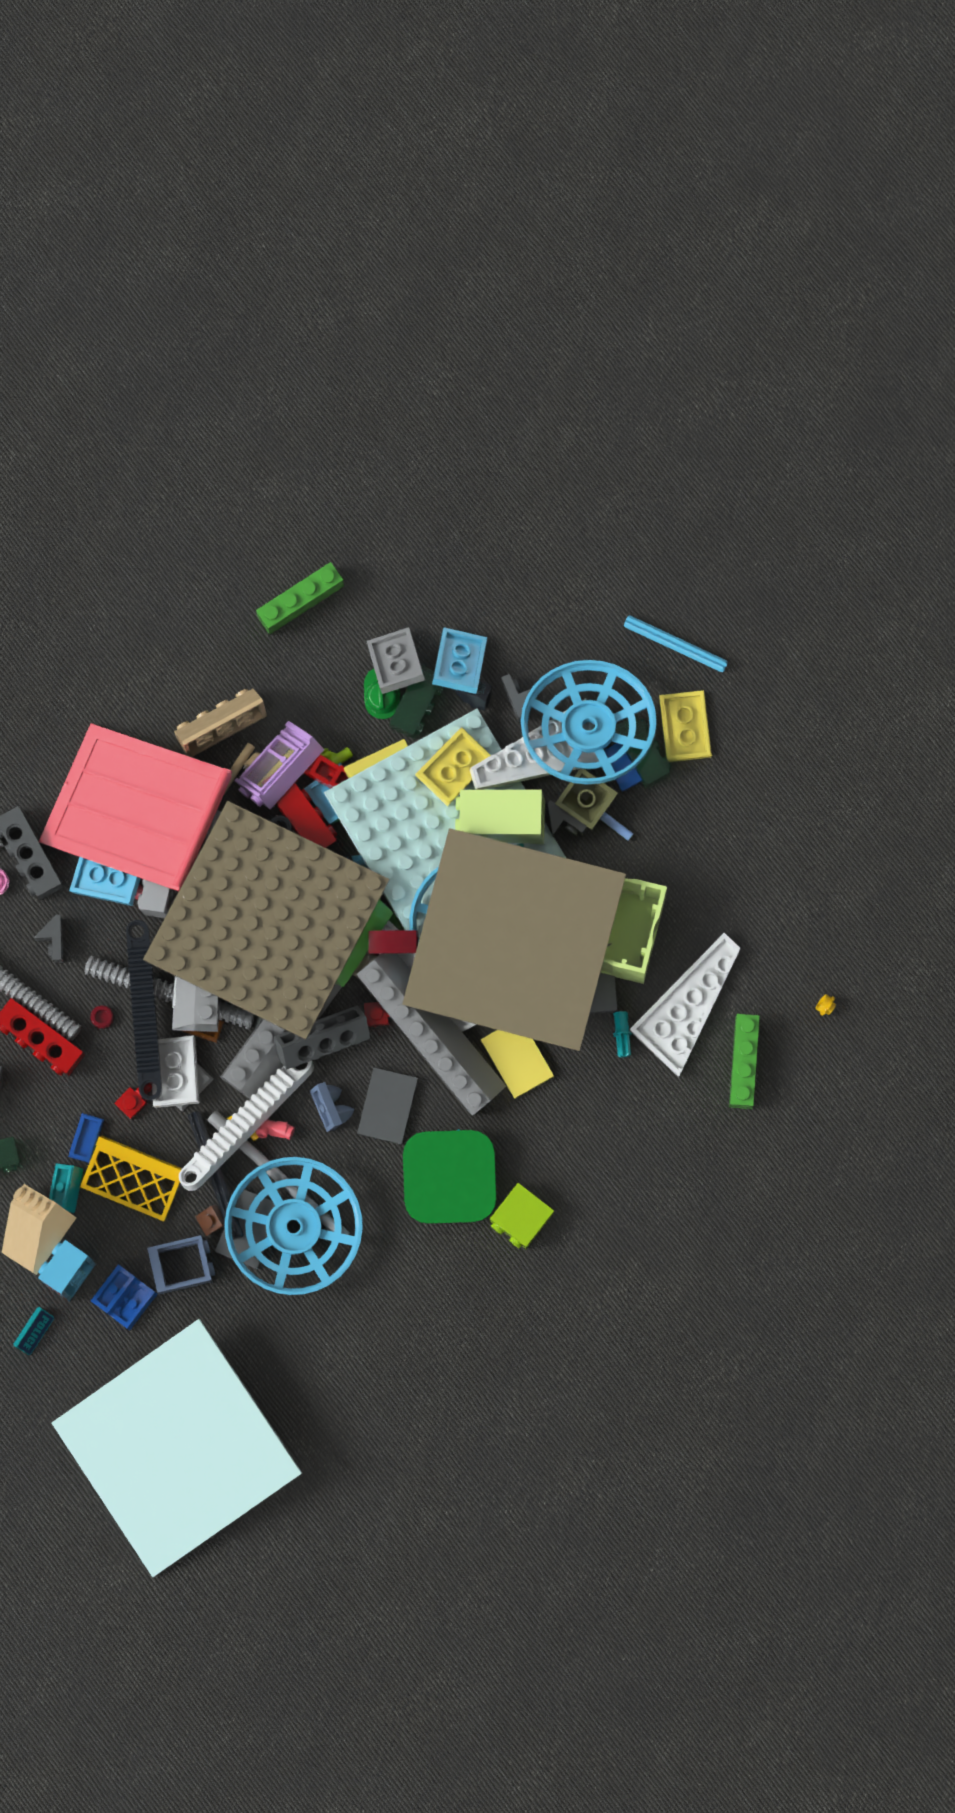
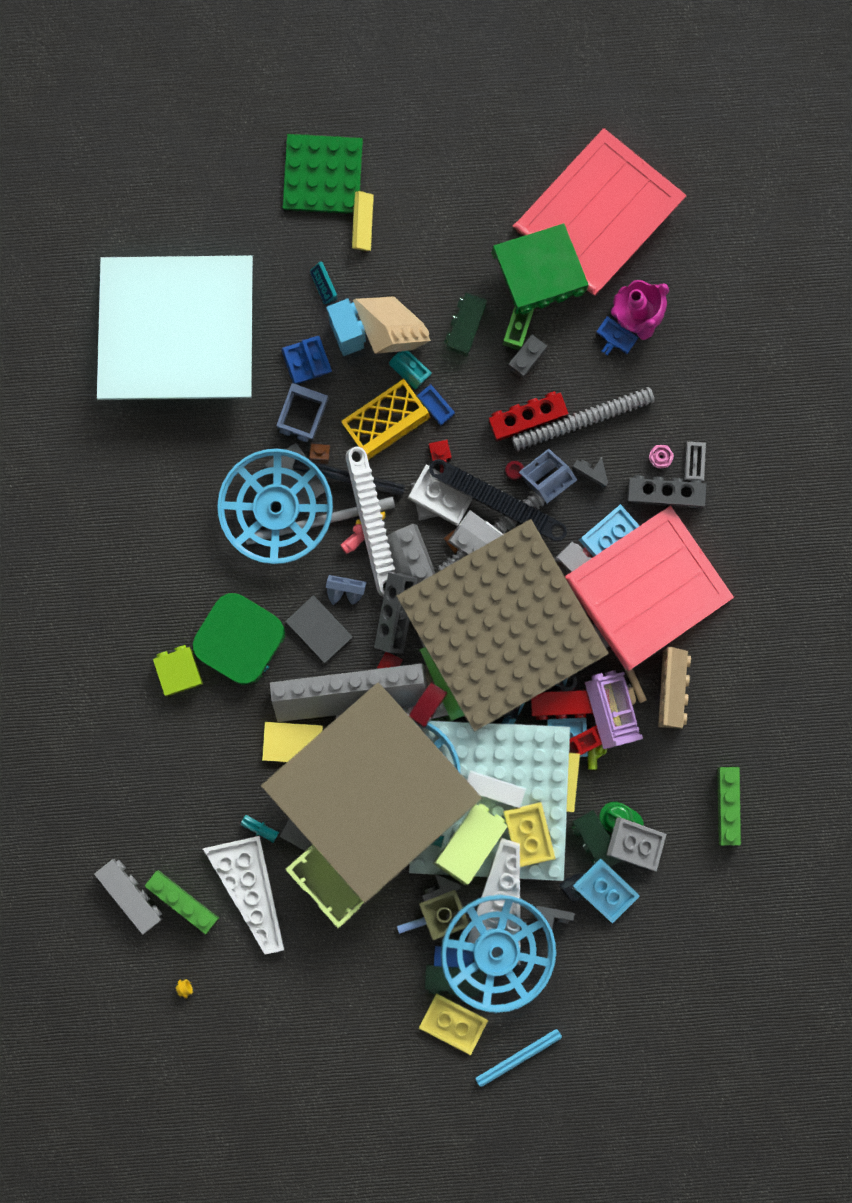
camera: 120 degrees right, 5 degrees up
(91, 961) = (554, 483): none -> sand blue window
(431, 824) = (496, 789): none -> white tile
(773, 1118) = (128, 896): none -> light grey brick

